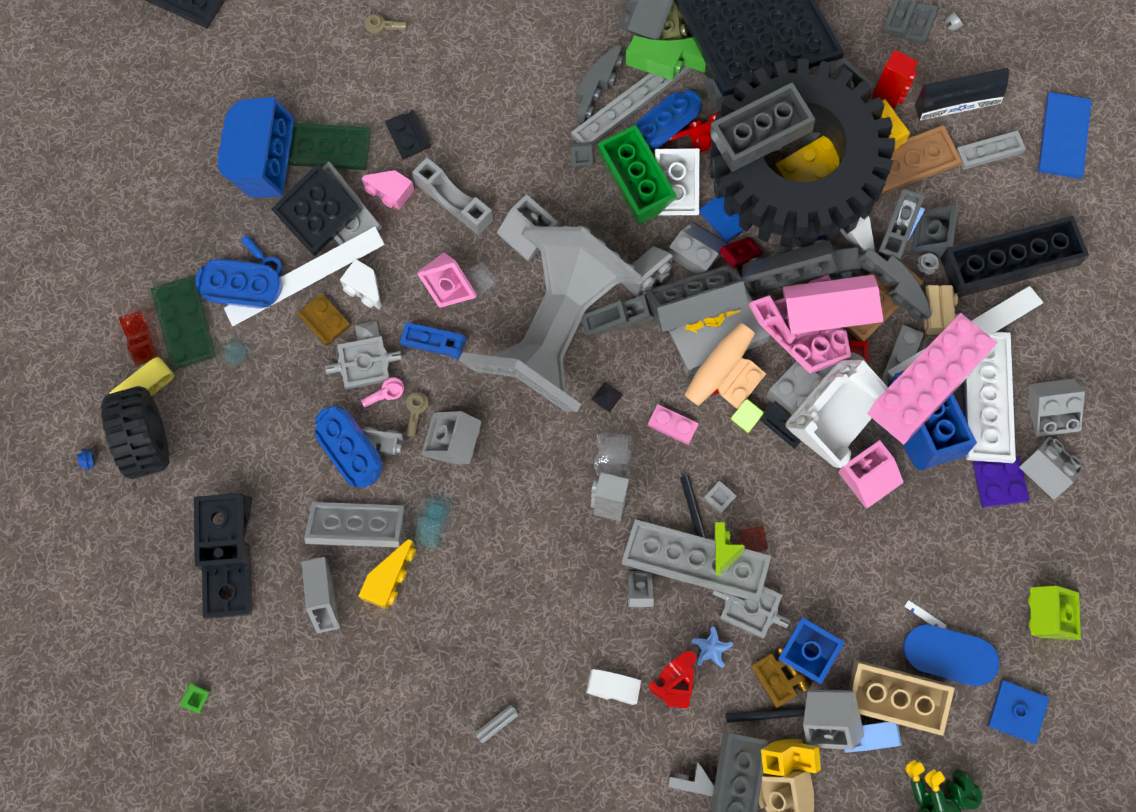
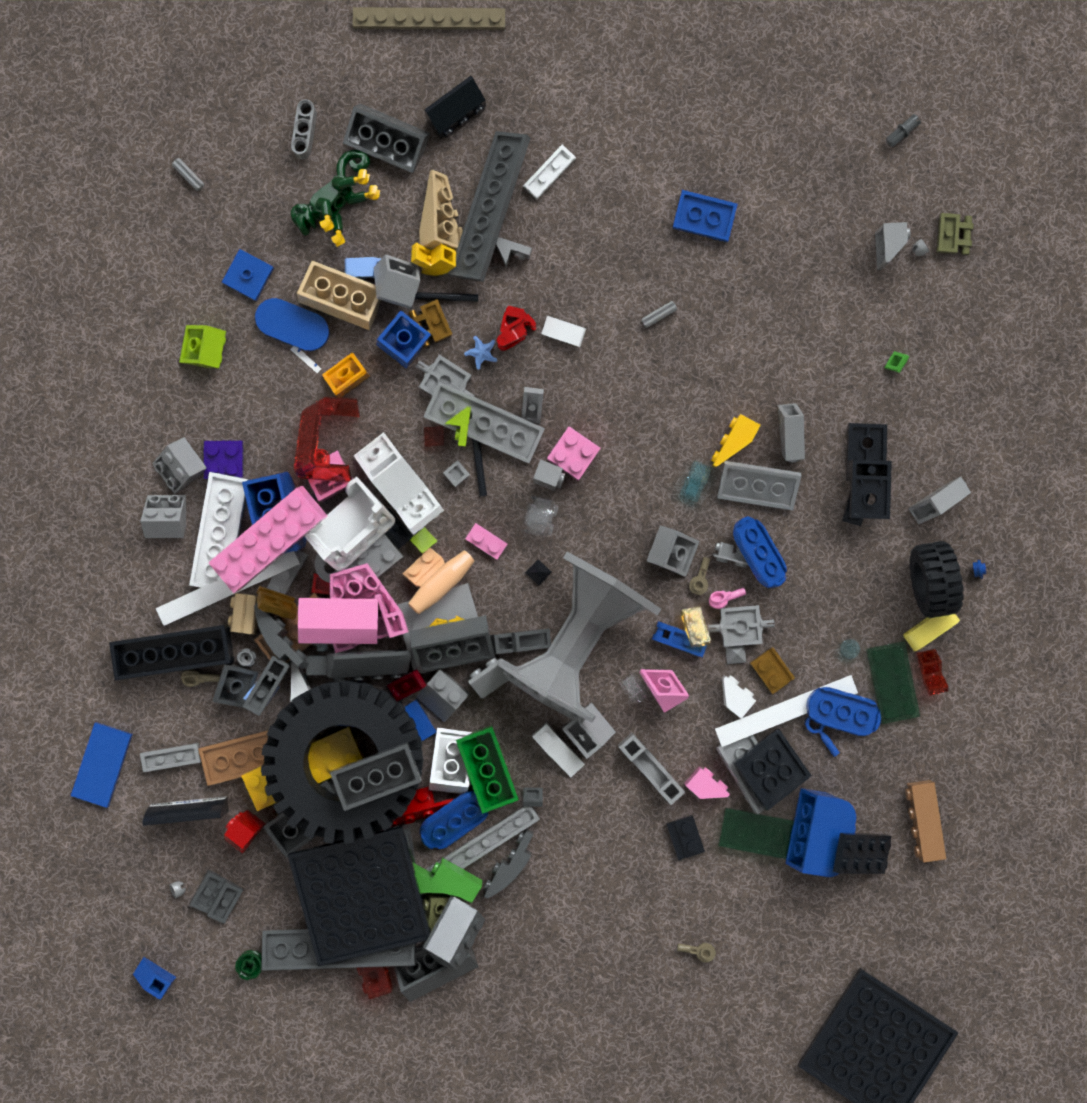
camera: 175 degrees left, 15 degrees up
(134, 532) = (940, 500): none -> light grey slope
(139, 179) = (926, 821): none -> medium nougat brick
(209, 131) = (862, 853): none -> black plate
(416, 354) = (695, 626): none -> clear yellow plate
(561, 206) = (558, 749): none -> white slope
(582, 536) = (573, 453): none -> bright pink brick
(788, 473) = (398, 483): none -> white bracket
(874, 599) = (345, 375): none -> light orange slope
(902, 482) = (314, 462): none -> clear red windscreen
(906, 320) = (276, 603): none -> pearl gold plate
(980, 233) = (192, 678): none -> dark tan plate

